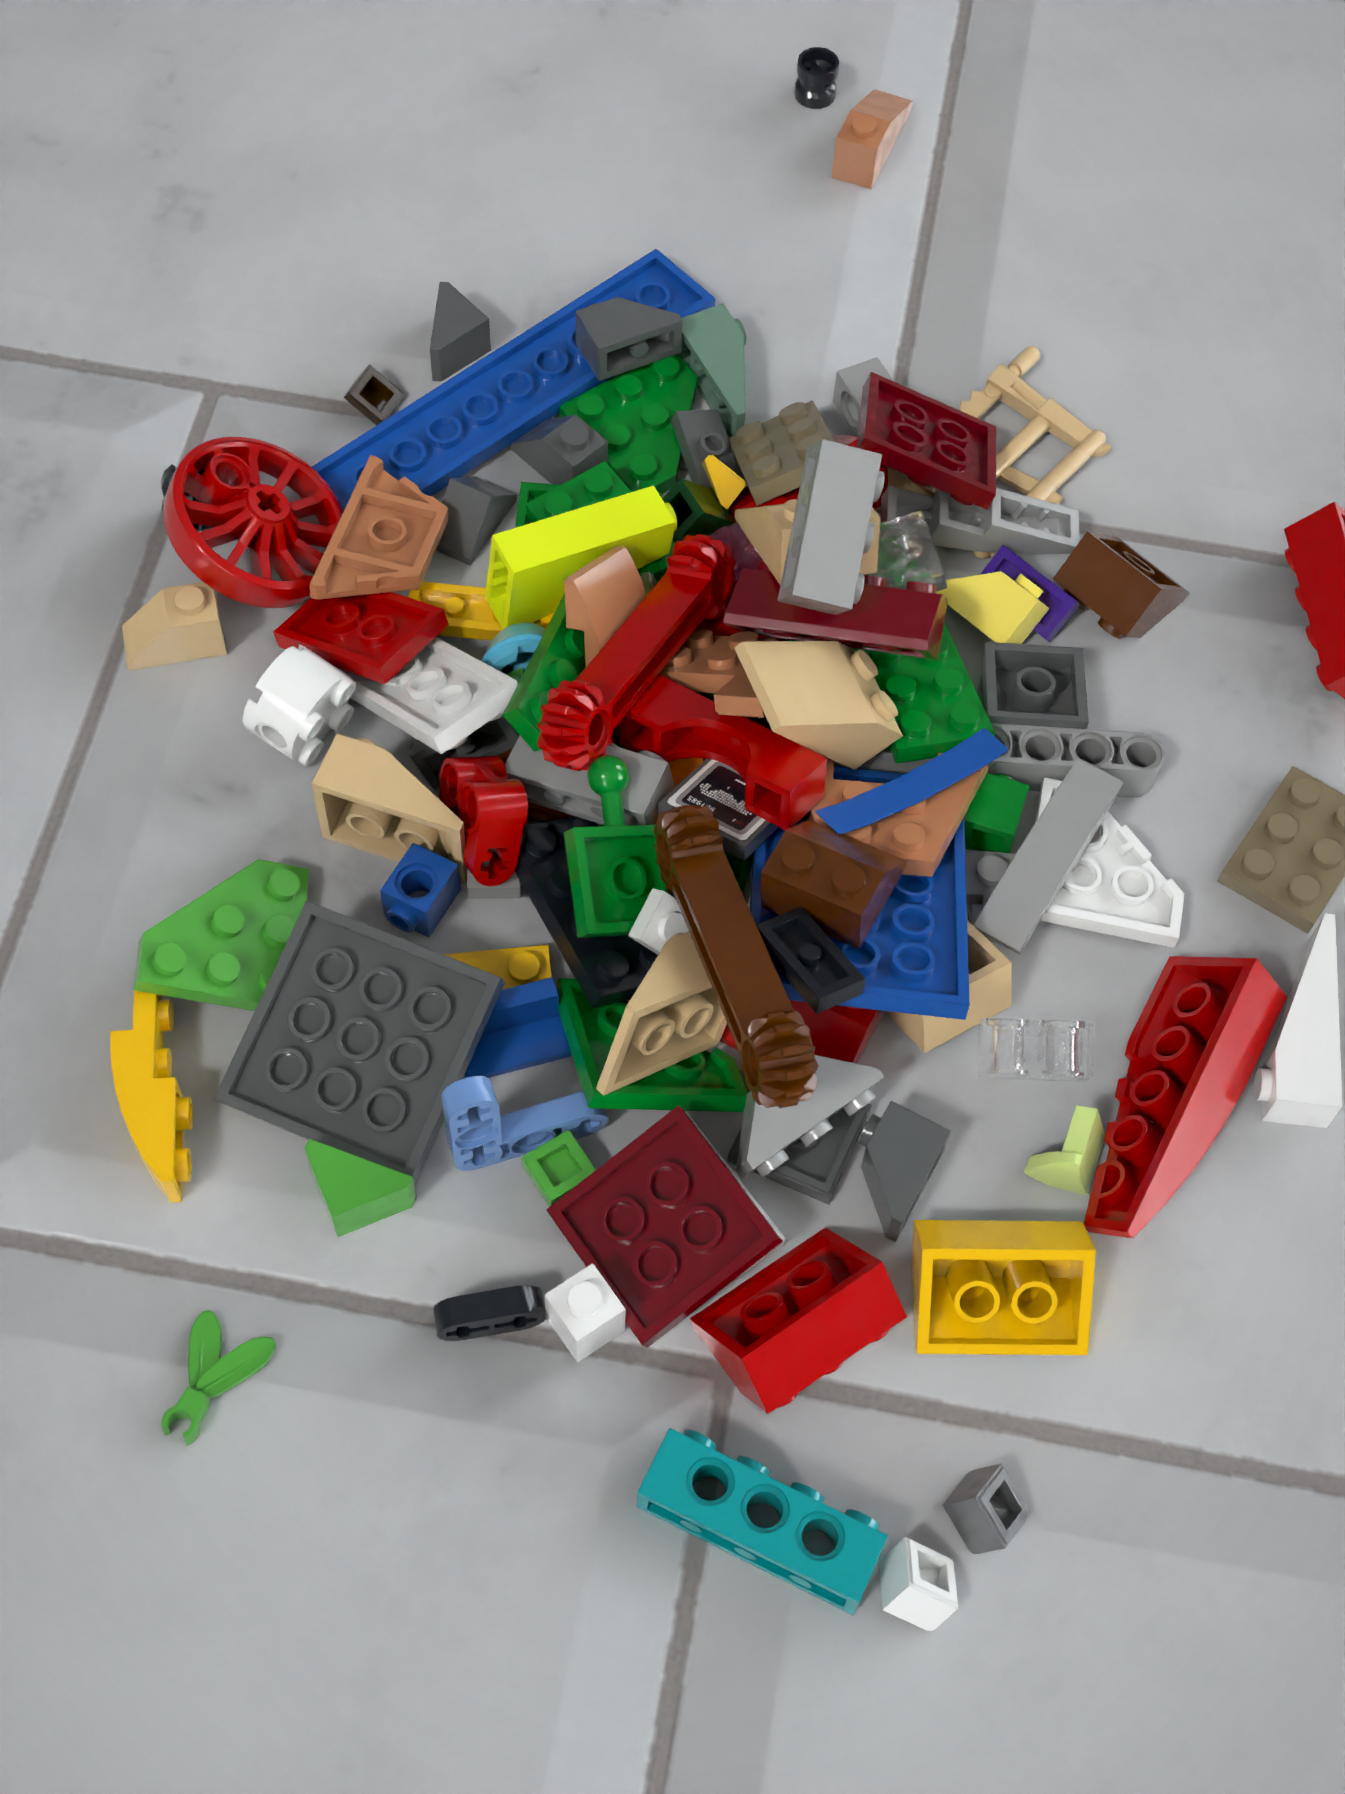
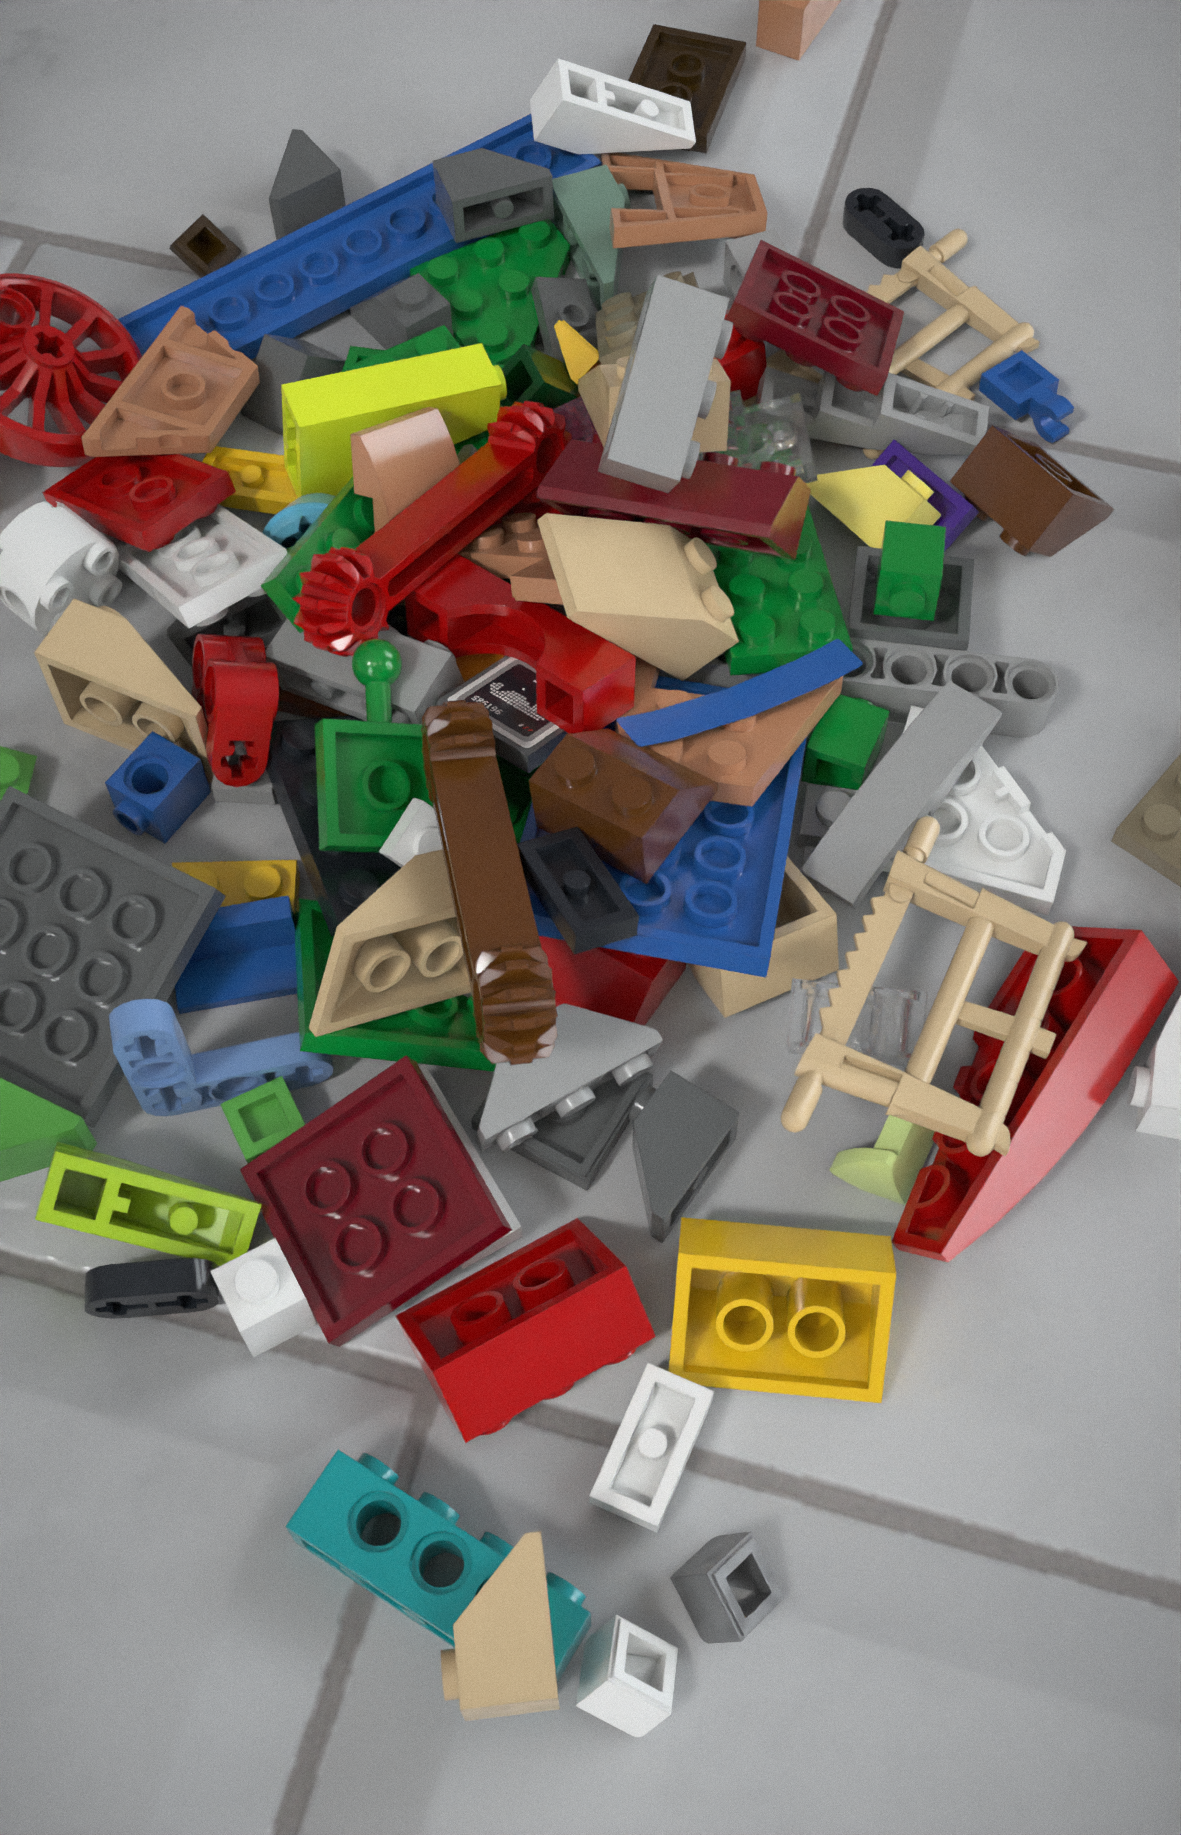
camera: 10 degrees right, 0 degrees up
(473, 1246) = (144, 1206): none -> lime slope
(715, 256) = (605, 114): none -> white slope
(772, 223) = (693, 69): none -> dark brown plate
(802, 330) = (689, 200): none -> nougat wing
(833, 1563) = (505, 1642): none -> tan slope
(913, 1405) = (651, 1447): none -> white plate
(963, 343) = (881, 226): none -> black beam
(1034, 664) = (910, 570): none -> green brick
(1088, 1104) = (910, 1091): none -> tan piece
(1105, 489) = (1025, 387): none -> blue plate

